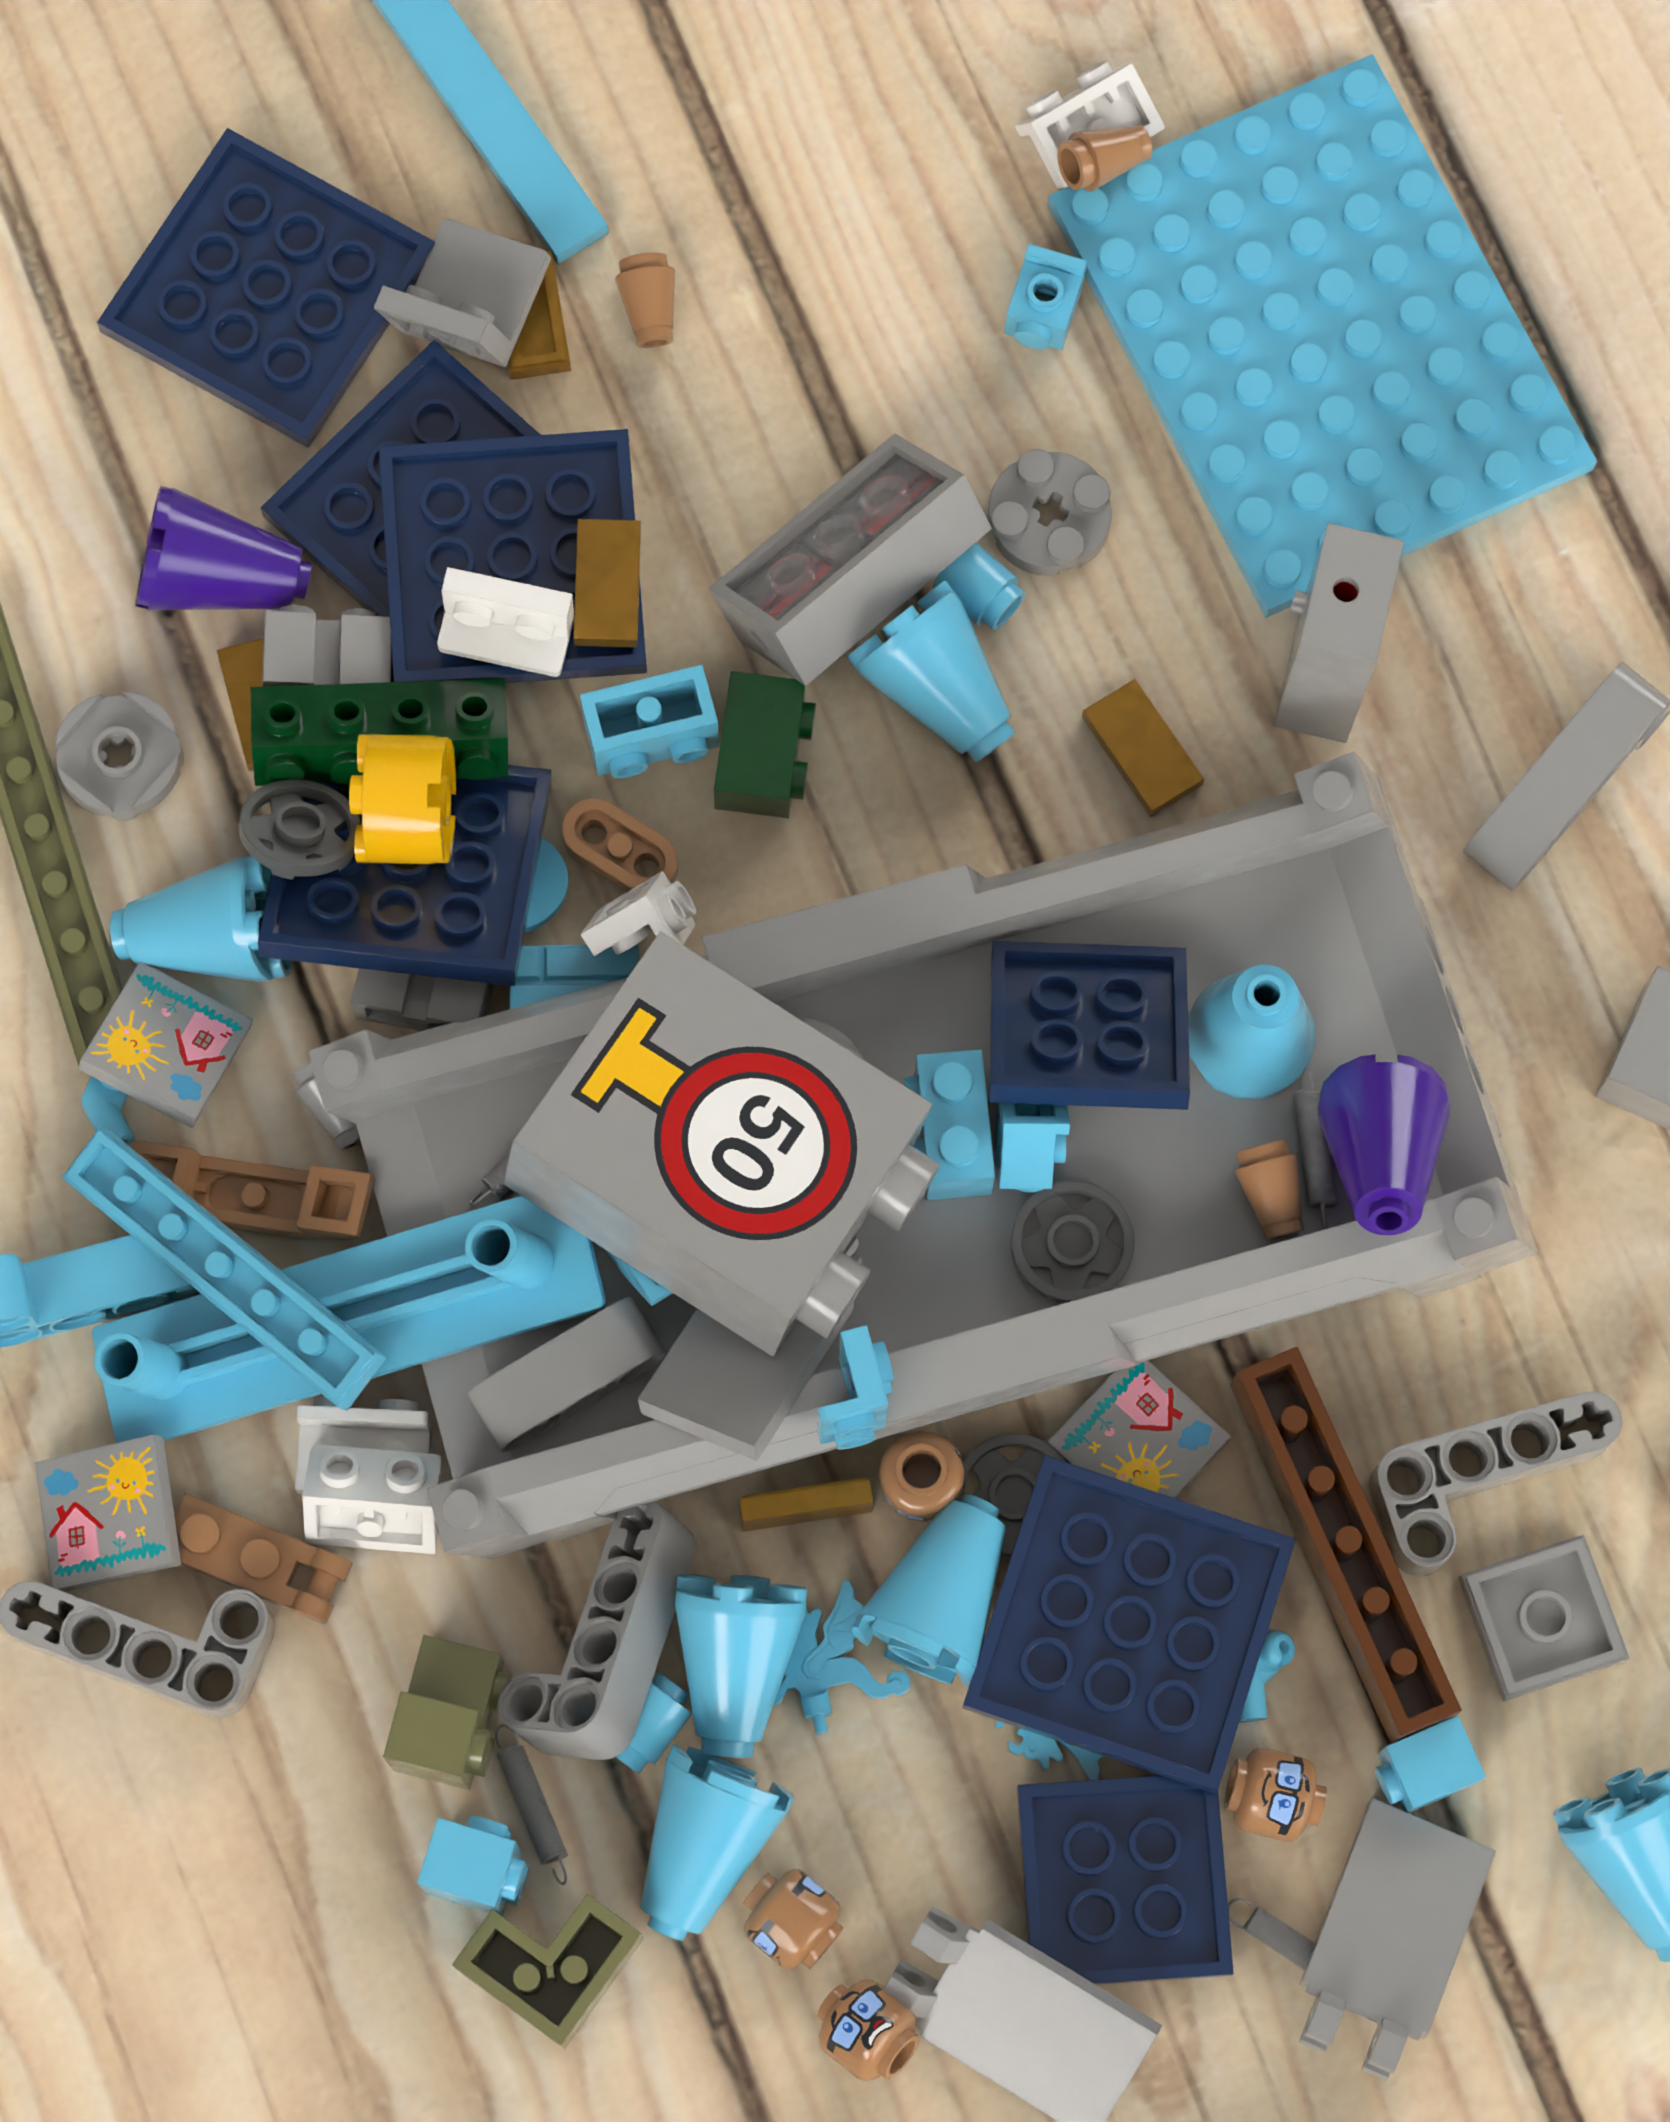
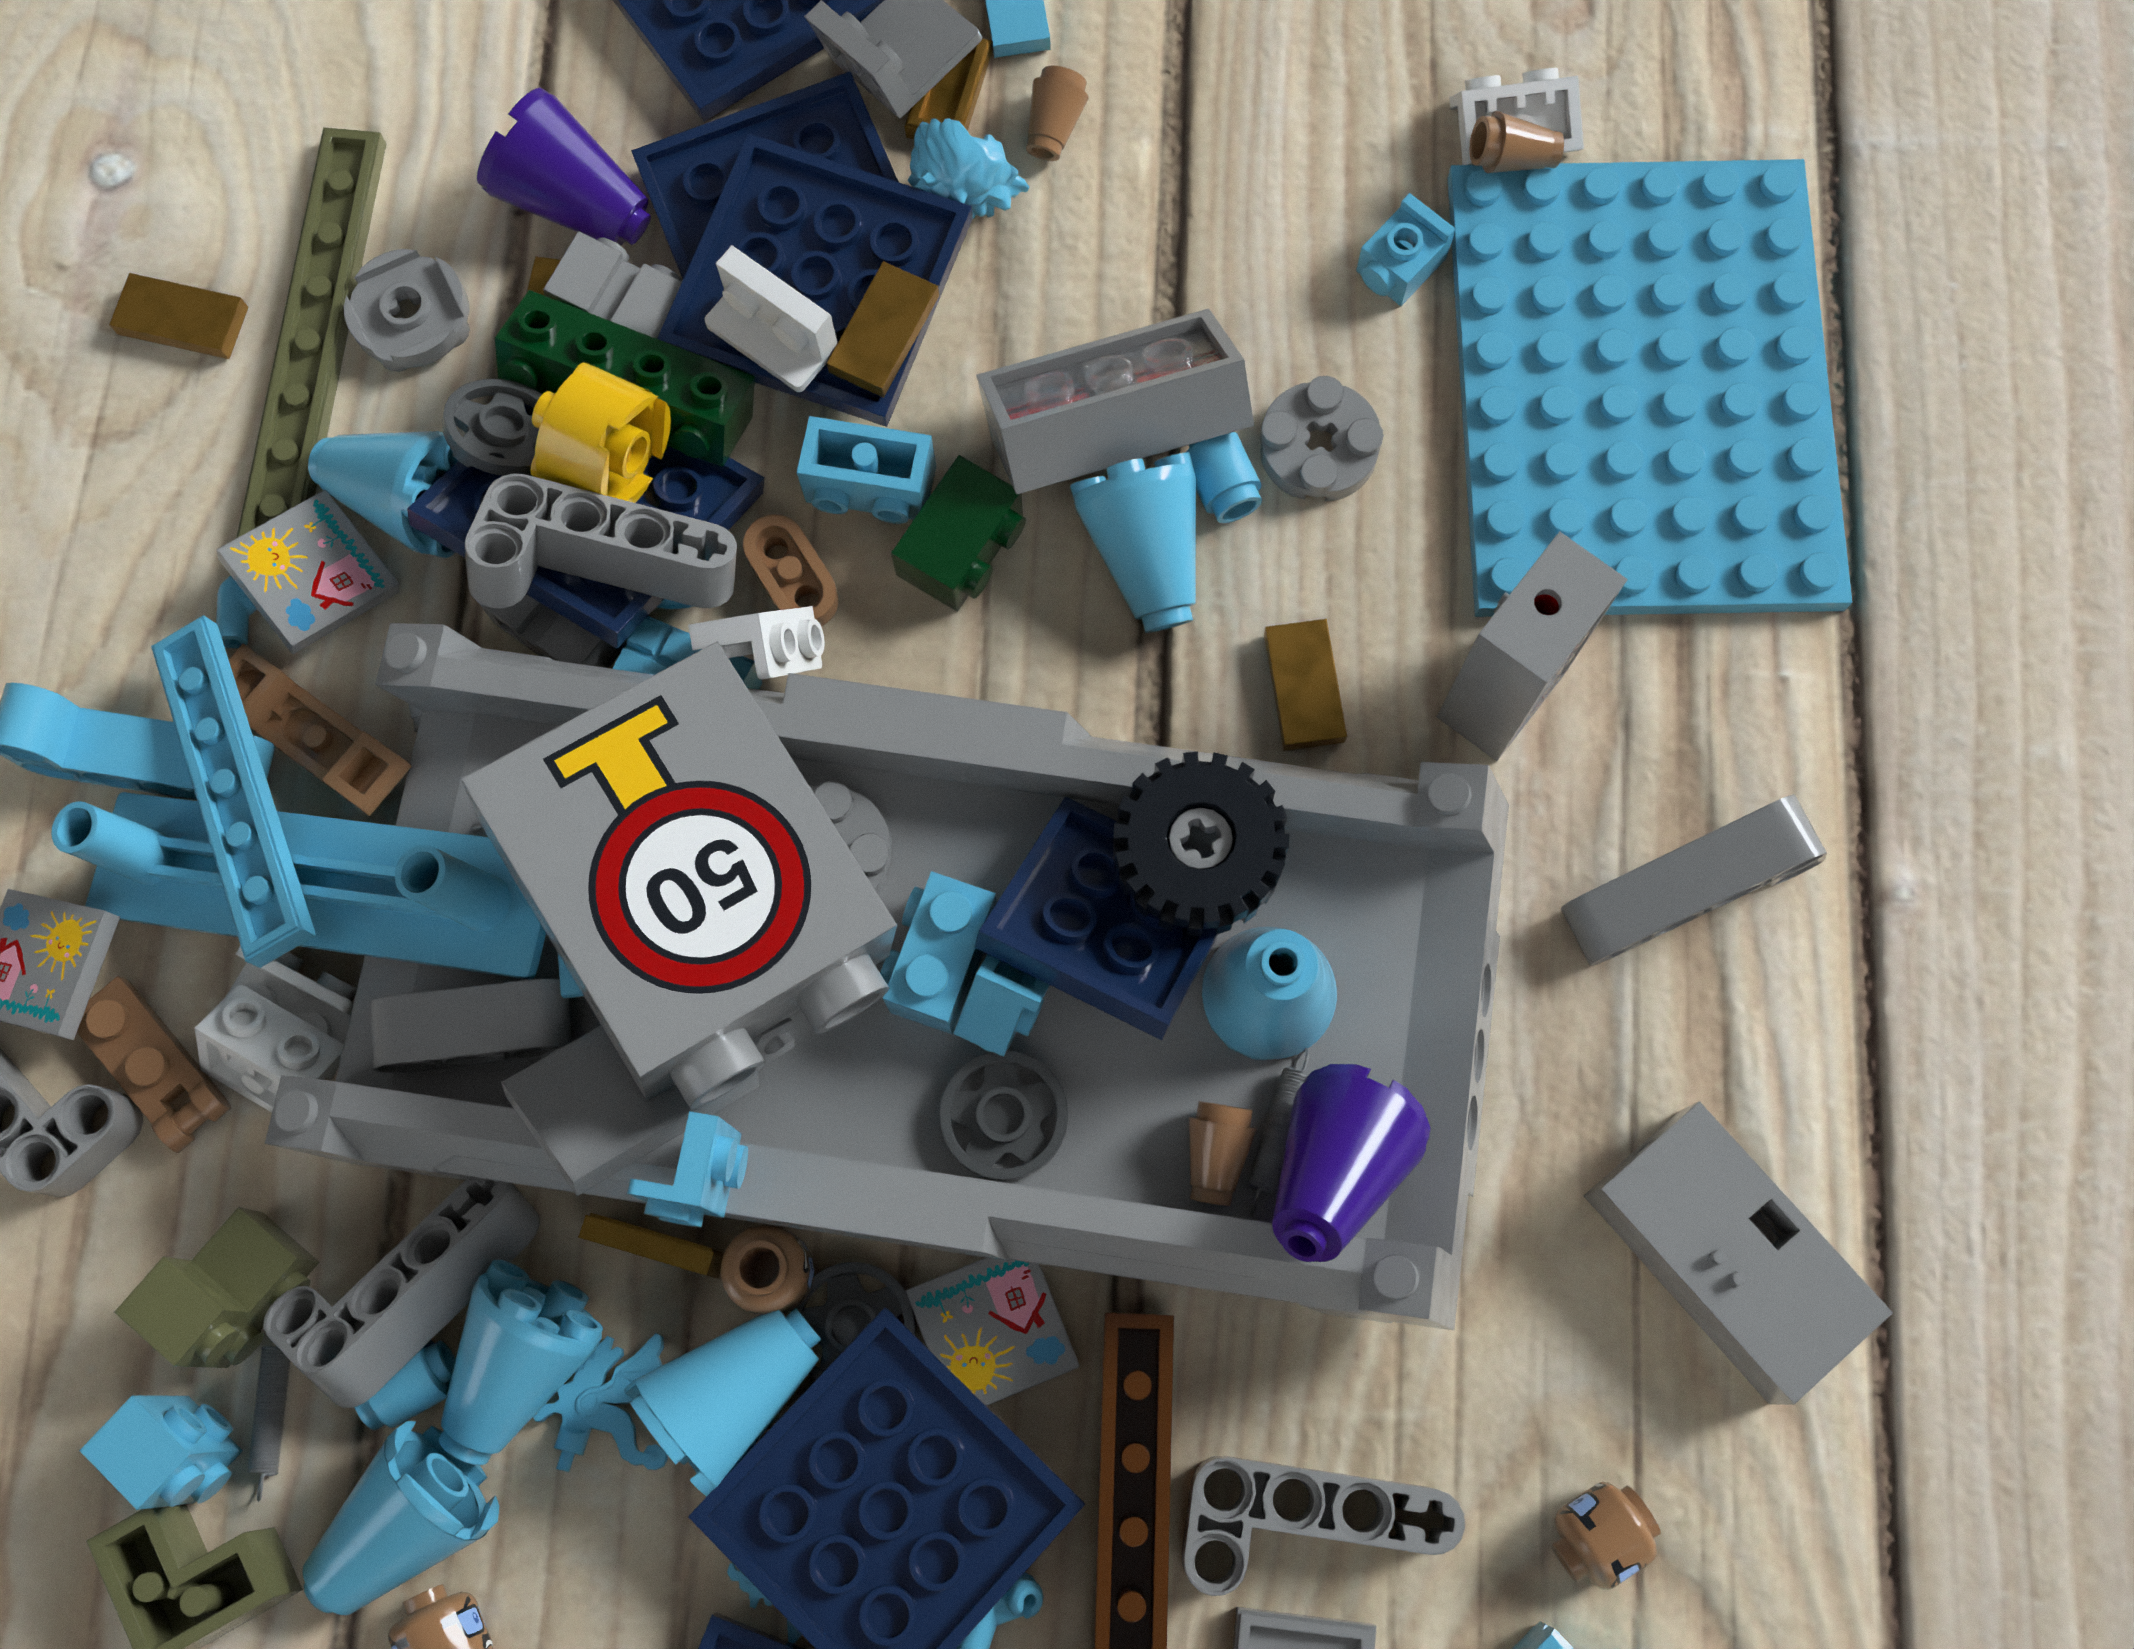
camera: 30 degrees right, 0 degrees up
(456, 893) = (593, 537): none -> light grey beam
(595, 395) = (963, 167): none -> medium azure hair
(1142, 969) = (1181, 884): none -> black bush

